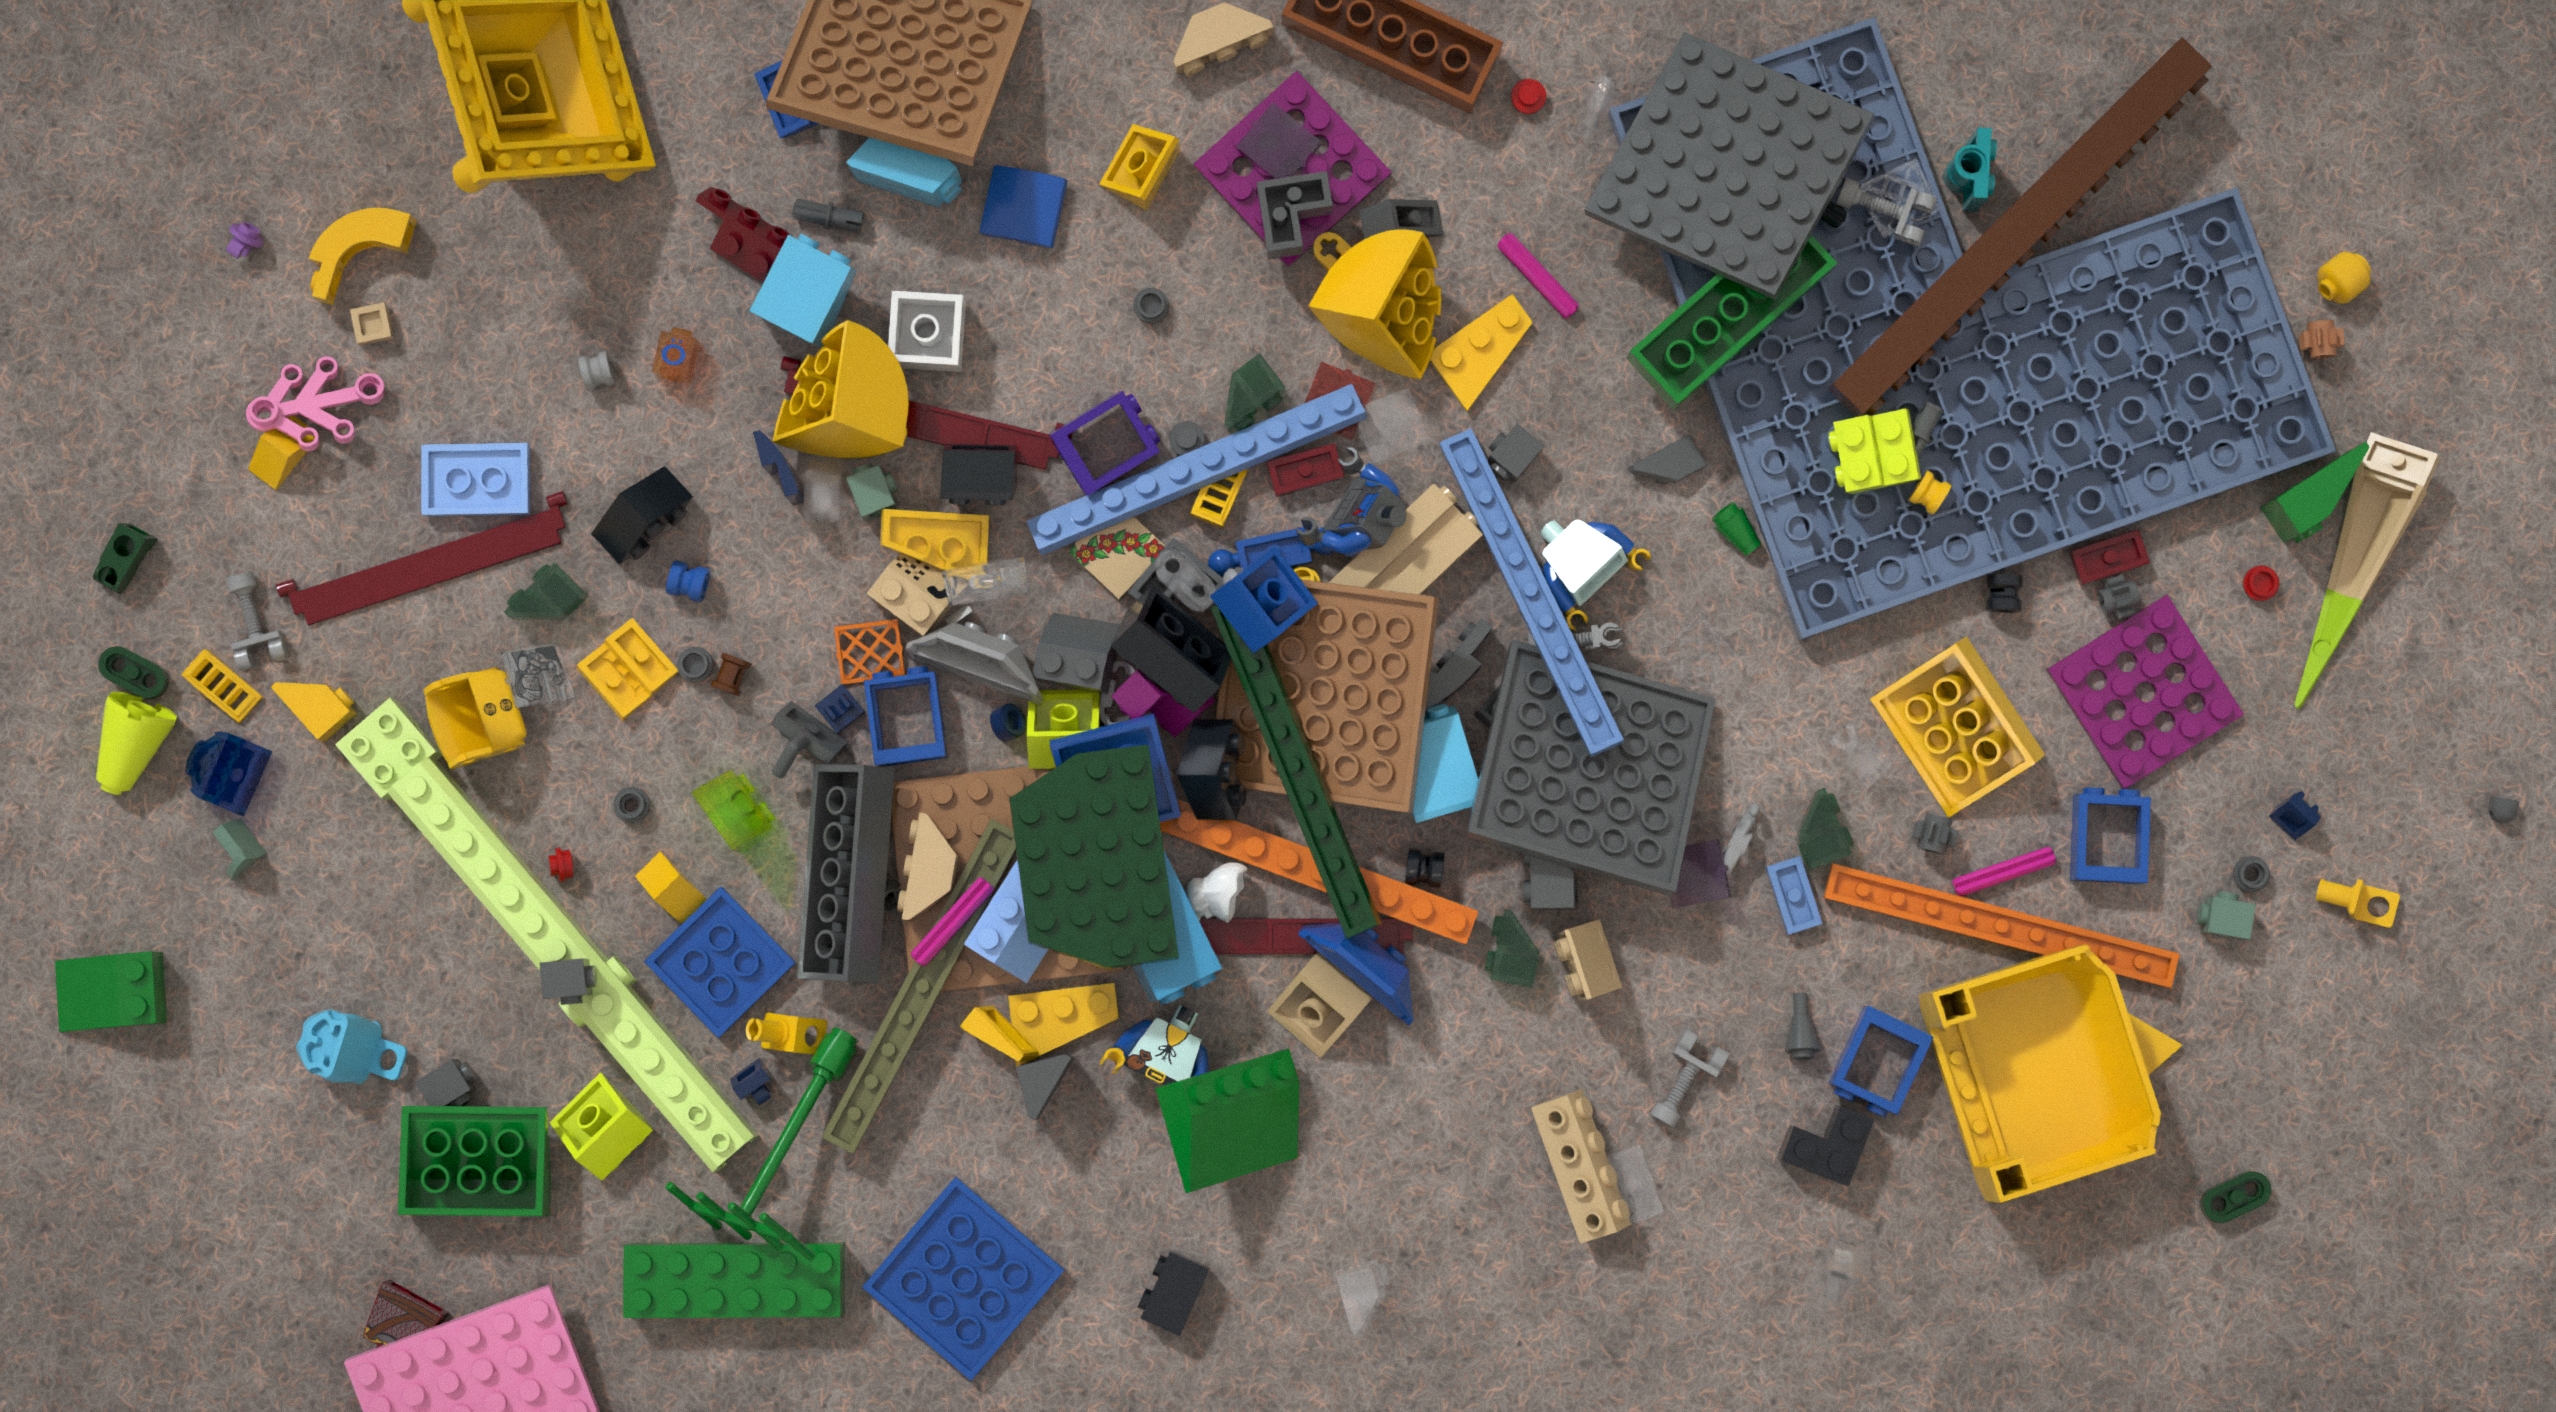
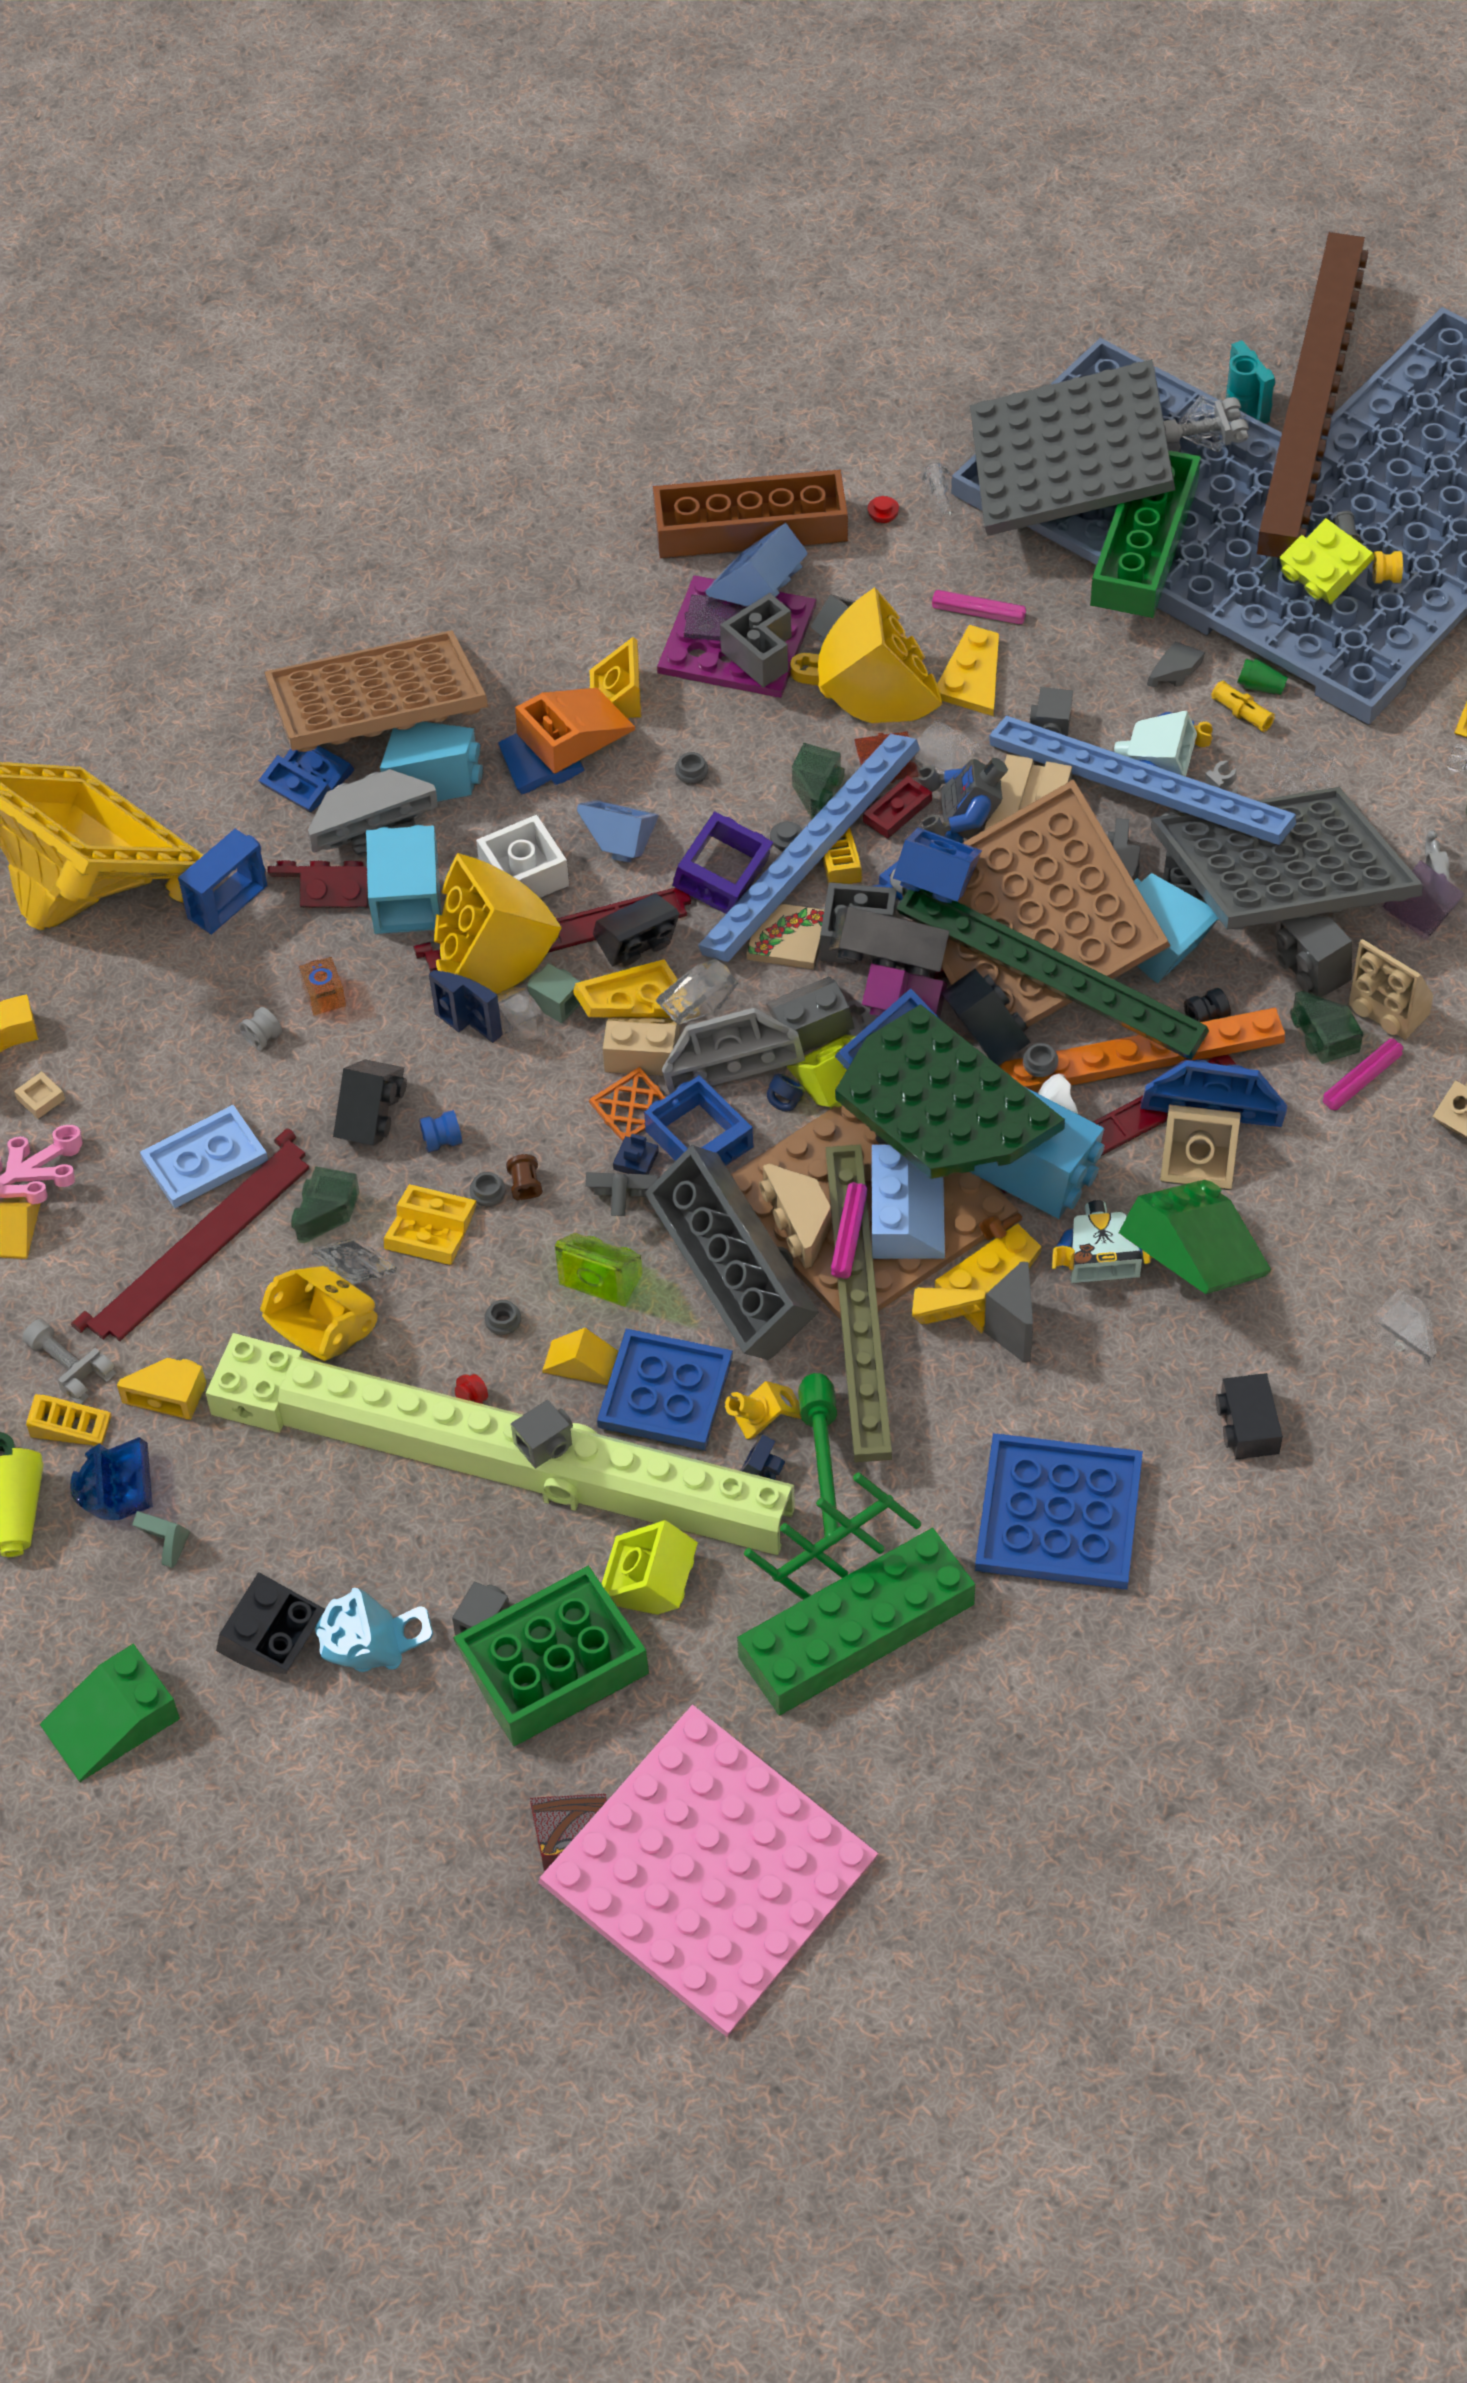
camera: 30 degrees left, 30 degrees down
(272, 995) = (268, 1627): none -> black slope
(648, 190) = (215, 908): none -> blue window
(815, 190) = (368, 804): none -> light grey wedge
(1040, 335) = (618, 828): none -> medium blue slope
(1063, 203) = (569, 725): none -> orange slope
(1089, 980) = (993, 1227): none -> dark orange hand
(1185, 579) = (861, 896): clear plate -> none
(1218, 35) = (618, 578): tan slope -> none
(1235, 841) = (1040, 1060): none -> dark grey plate
(1351, 114) = (760, 568): none -> medium blue slope
(1513, 1016) = (1362, 1074): none -> dark pink axle
(1691, 526) = (1243, 706): none -> yellow pin

